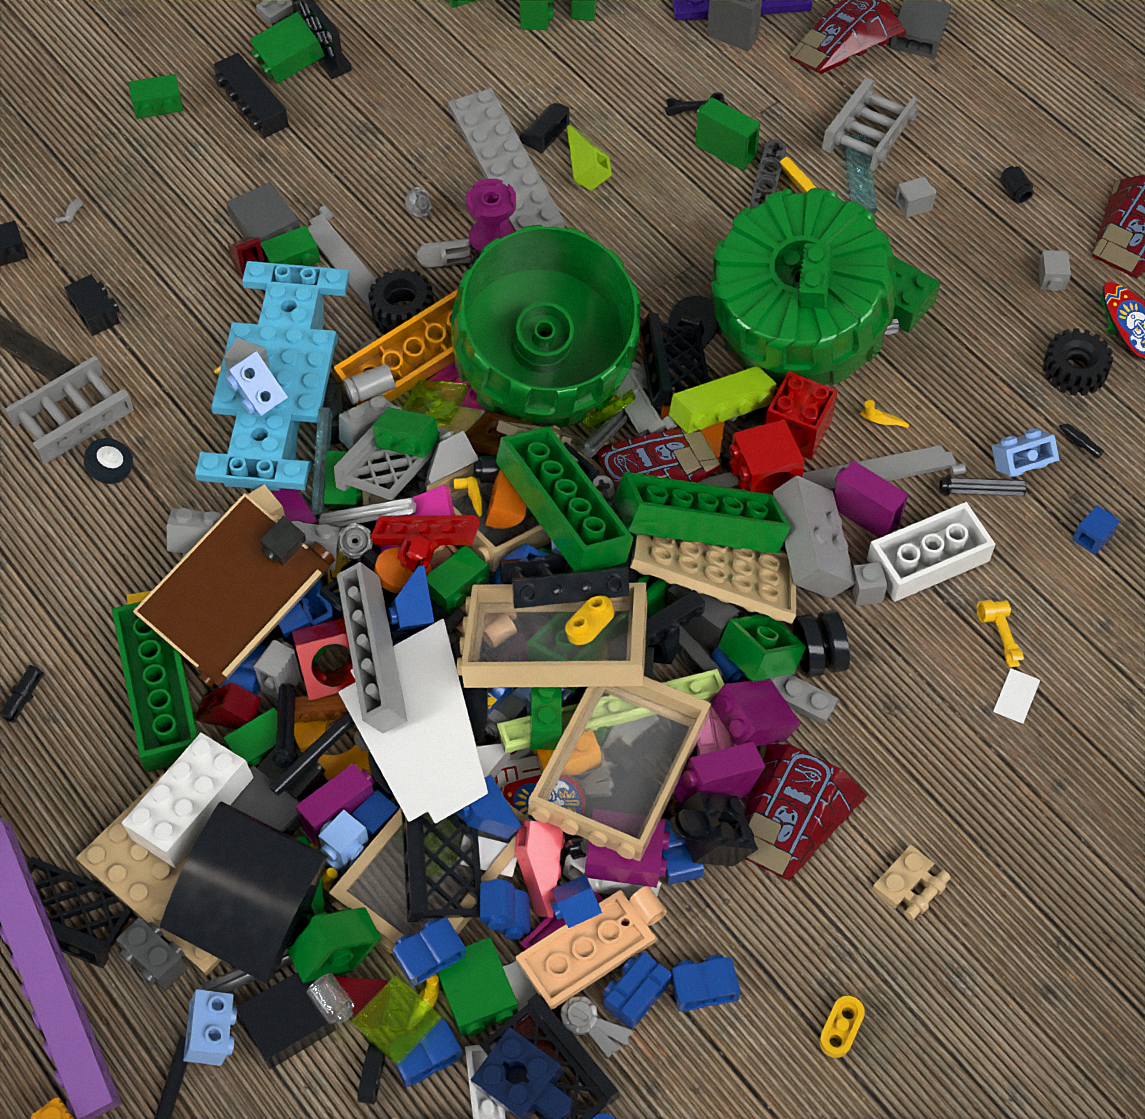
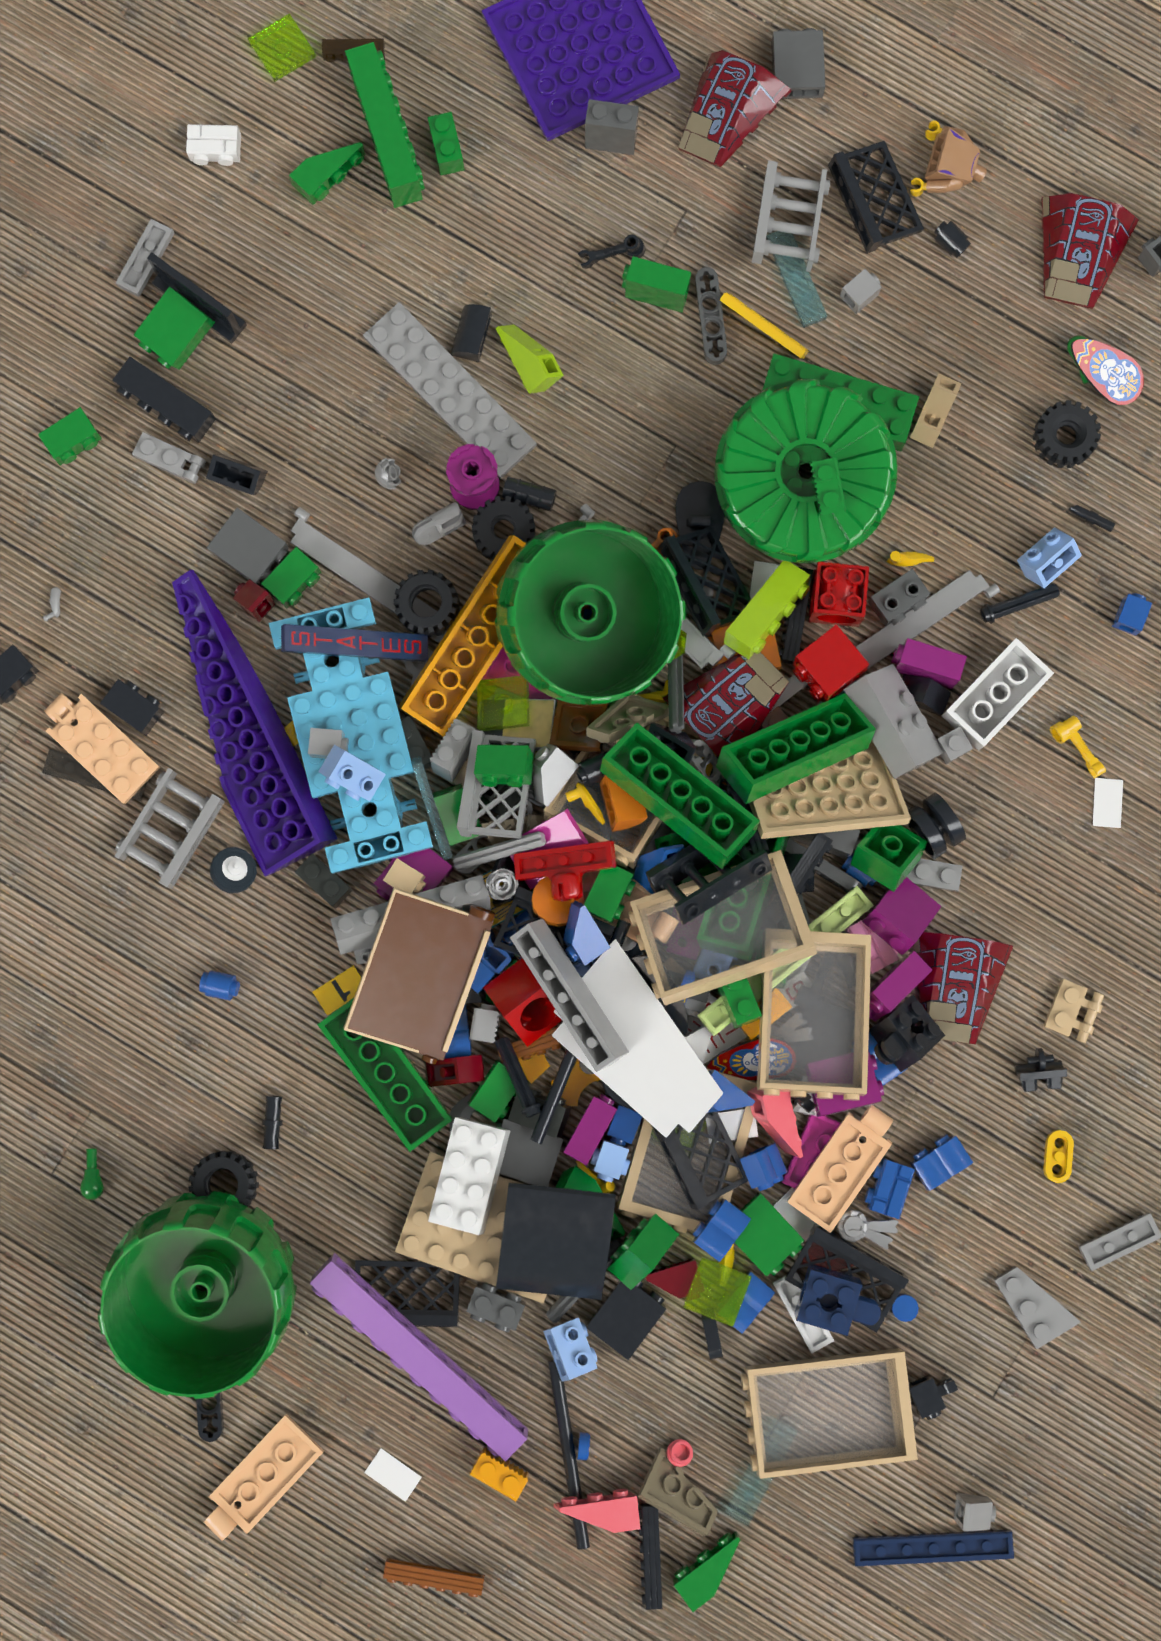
camera: 20 degrees left, 25 degrees up
(39, 554) = (219, 985): none -> blue brick
(45, 325) = (100, 746): none -> light nougat hinge
(184, 365) = (251, 745): none -> dark purple wedge
(185, 489) = (322, 881): none -> pearl dark grey brick
(231, 138) = (168, 457): none -> light grey plate
(282, 541) = (448, 923): pearl dark grey brick -> none
(284, 162) = (236, 474): none -> black brick
(314, 295) = (354, 643): none -> dark blue tile
(331, 999) = (661, 1297): clear brick -> none
(369, 384) = (442, 716): light grey piece -> none
(575, 901) = (819, 1141): blue brick -> none
(589, 620) = (748, 908): yellow plate -> none
(858, 532) = (927, 693): none -> black slope
(860, 440) = (899, 598): none -> dark grey brick
(865, 934) = (1040, 1067): none -> black hips
(938, 133) = (855, 200): none -> black fence
(954, 306) = (935, 410): none -> tan brick
(1034, 128) = (951, 161): none -> medium nougat torso
(1054, 270) = (1016, 334): light grey brick -> none

